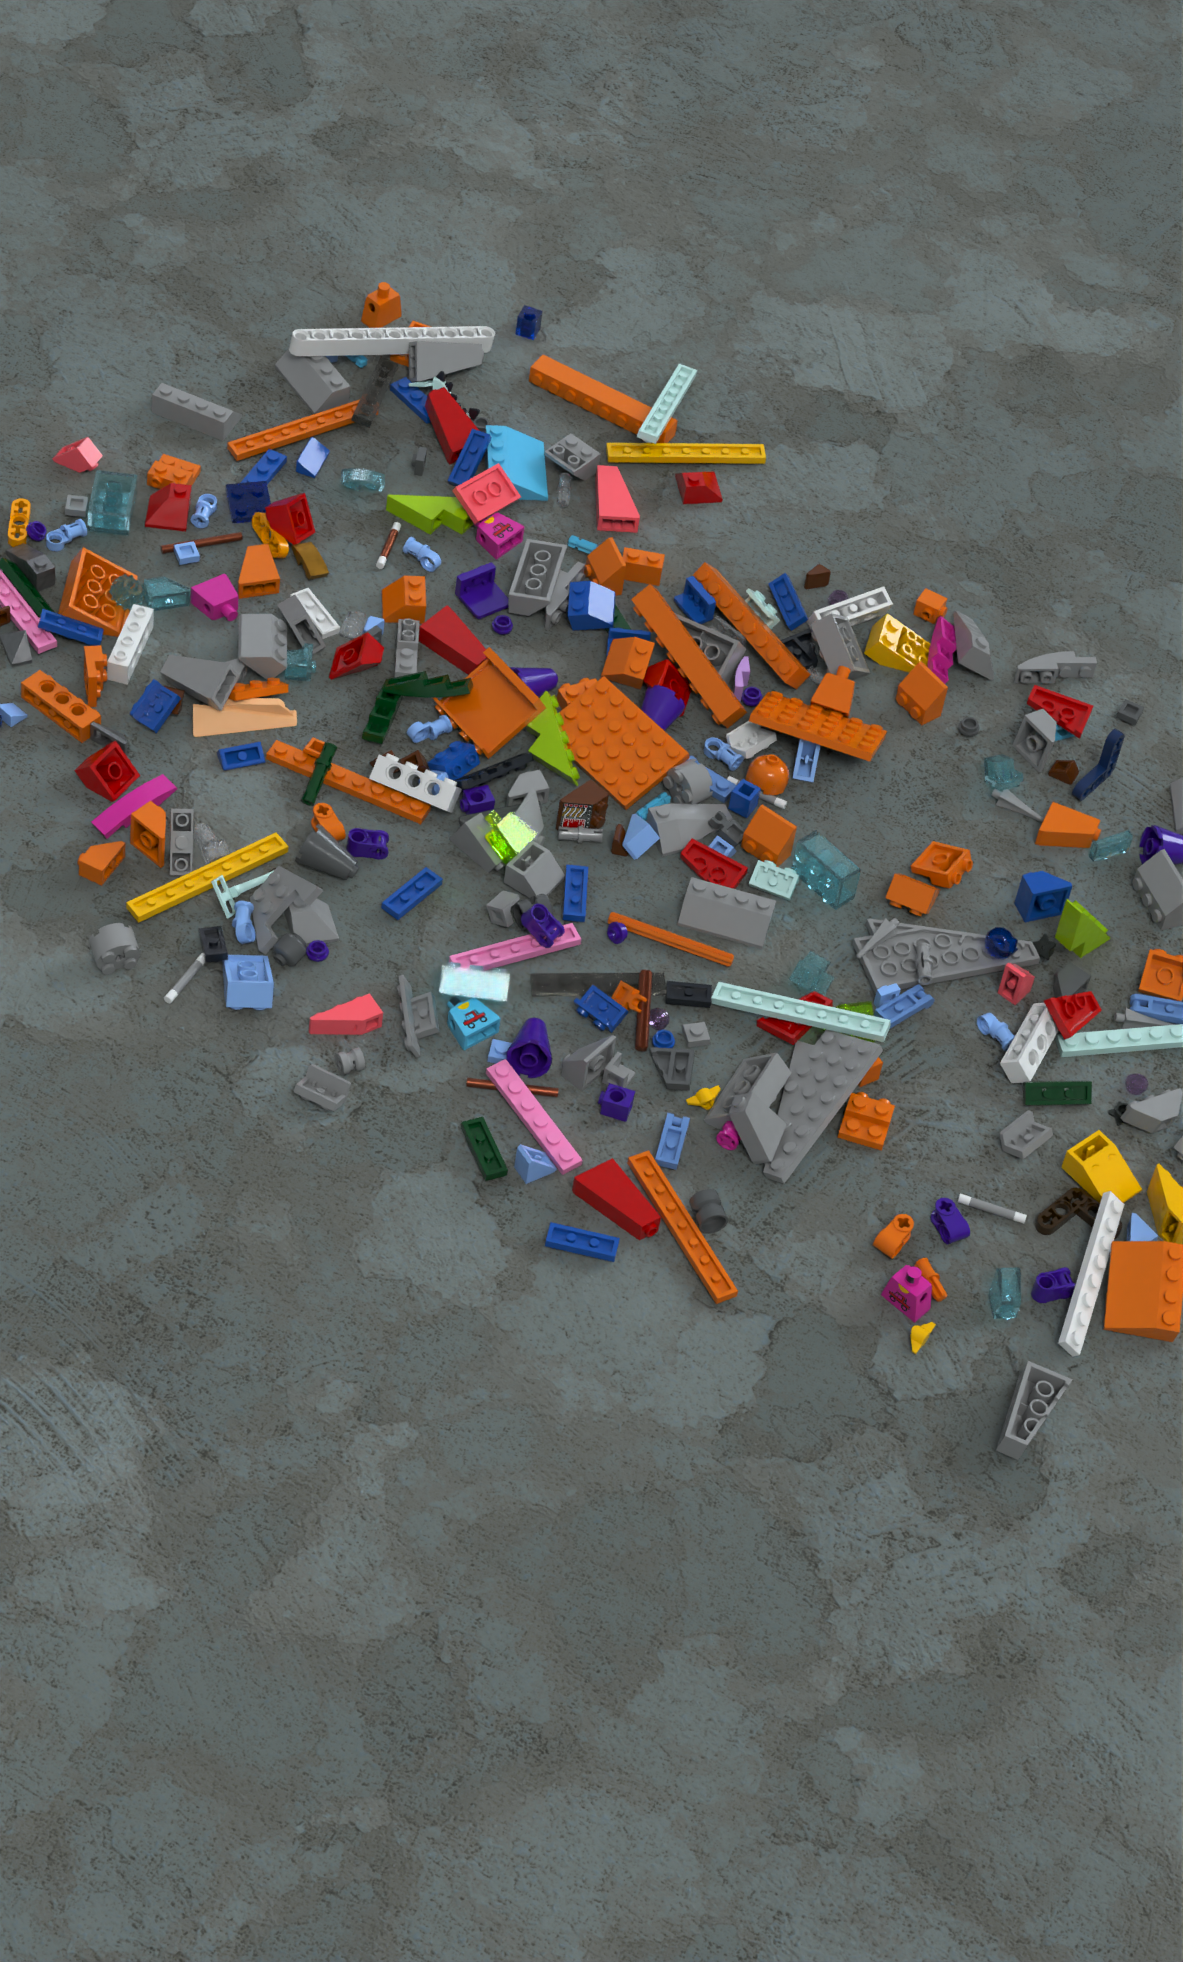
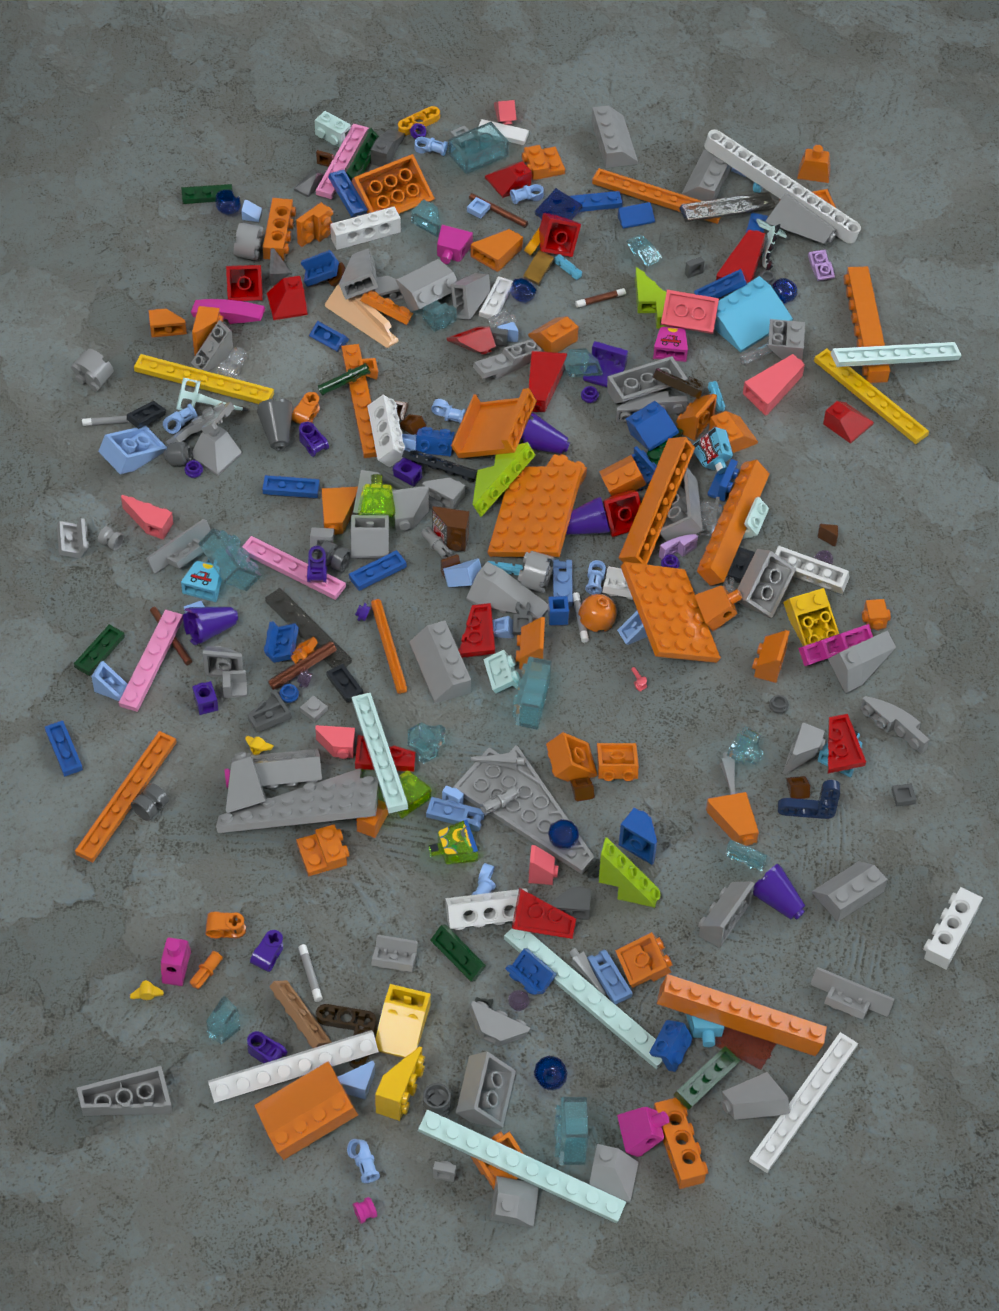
camera: 60 degrees right, 5 degrees up
(61, 735) = (248, 241): none -> light grey brick
(84, 482) = (511, 133): none -> white tile
(127, 591) = (399, 199): clear light blue gear -> none
(163, 754) = (287, 299): none -> red slope
(328, 541) = (568, 267): none -> medium azure axle
(329, 588) = (522, 290): none -> clear blue hair
(381, 716) = (443, 381): dark green slope -> none
(421, 686) = (477, 385): dark green slope -> none
(422, 552) = (609, 317): light blue connector -> none
(469, 601) = (582, 363): none -> clear light blue slope
(473, 876) = (338, 507): none -> orange slope
(504, 387) = (820, 265): none -> lavender slope
(508, 419) = (785, 289): none -> clear blue hair
(529, 322) = (895, 244): clear blue brick -> none
(572, 551) = (691, 387): none -> dark brown beam
(617, 1198) = (119, 742): red slope -> none
(663, 581) = (714, 450): none -> medium azure torso
(672, 1141) = (200, 747): medium blue plate -> none
(753, 1037) = (337, 740): none -> coral slope
(788, 601) = (786, 530): blue plate -> none
(867, 797) = (640, 683): none -> coral hand
(940, 1024) = (455, 844): none -> clear neon green torso
(947, 907) = (582, 789): none -> reddish brown slope
(1046, 1240) = (299, 1013): none -> medium nougat plate
(1117, 1055) = (531, 972): none -> blue bracket

